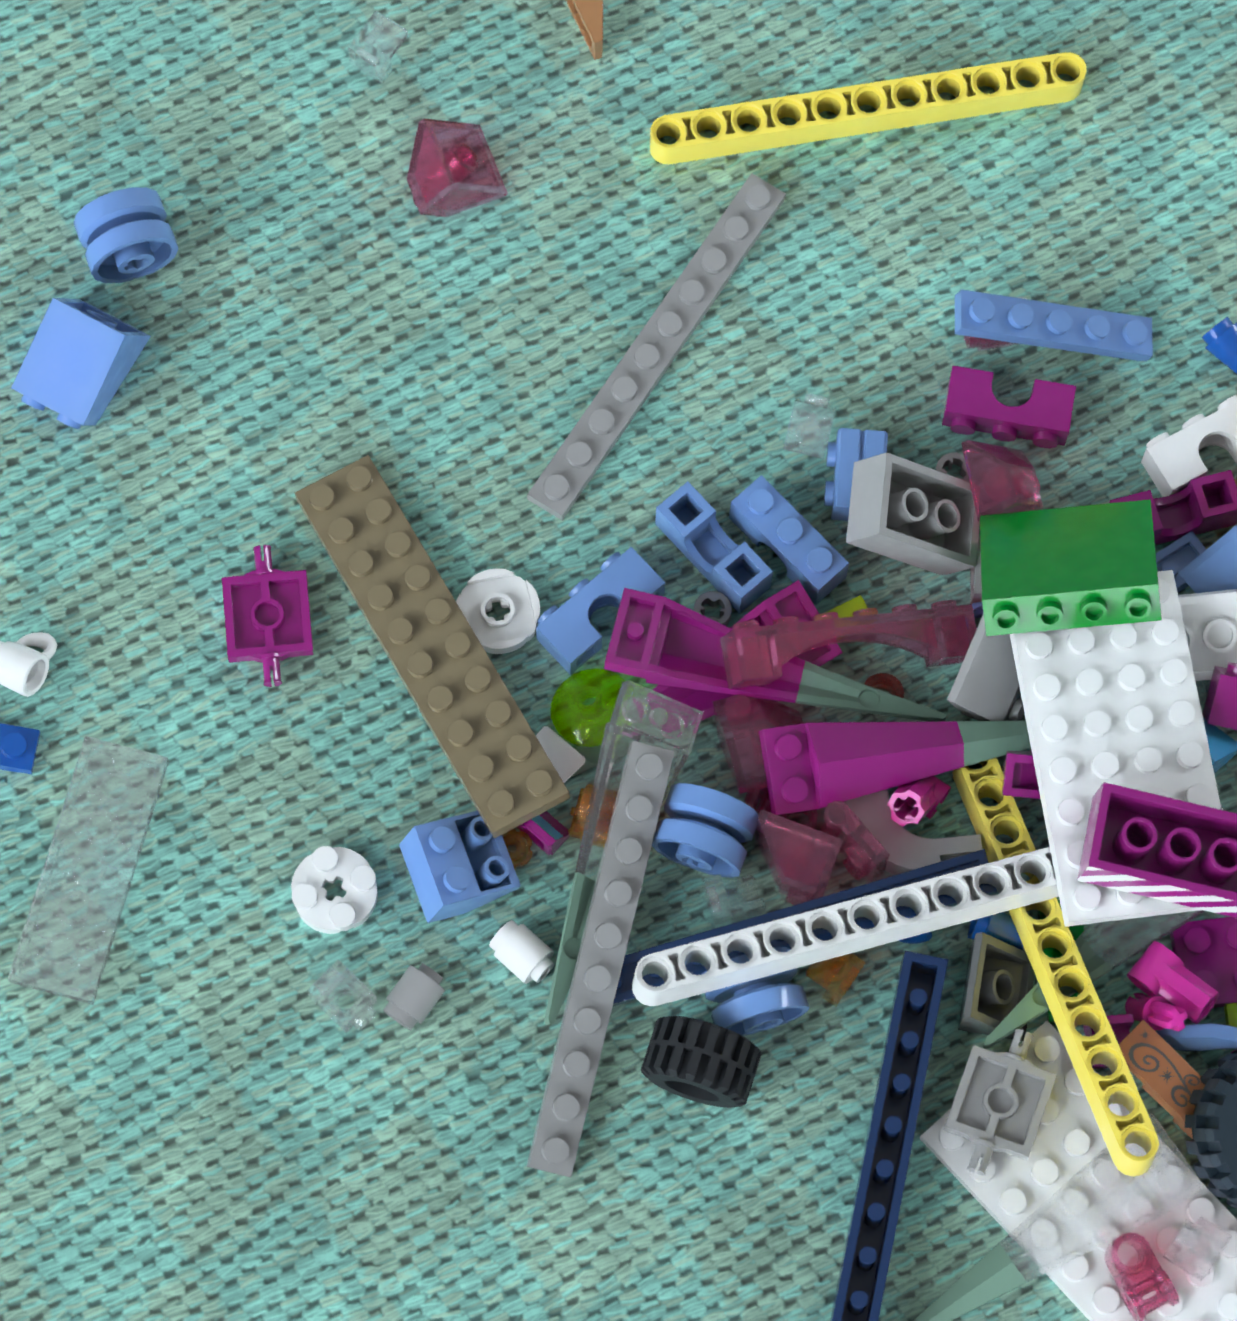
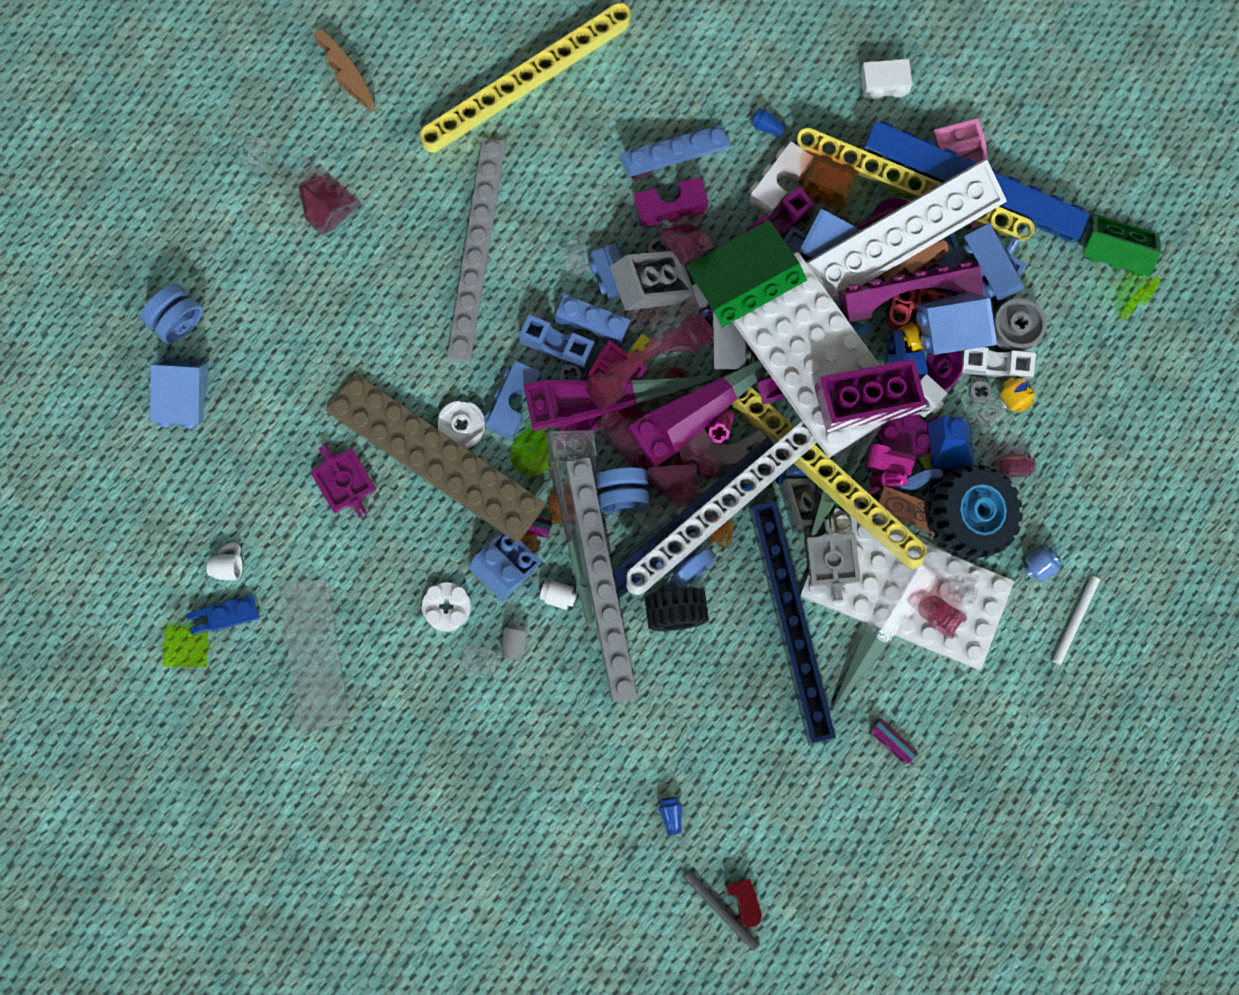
camera: 30 degrees left, 5 degrees up
(561, 754) = (530, 484): white sticker -> none

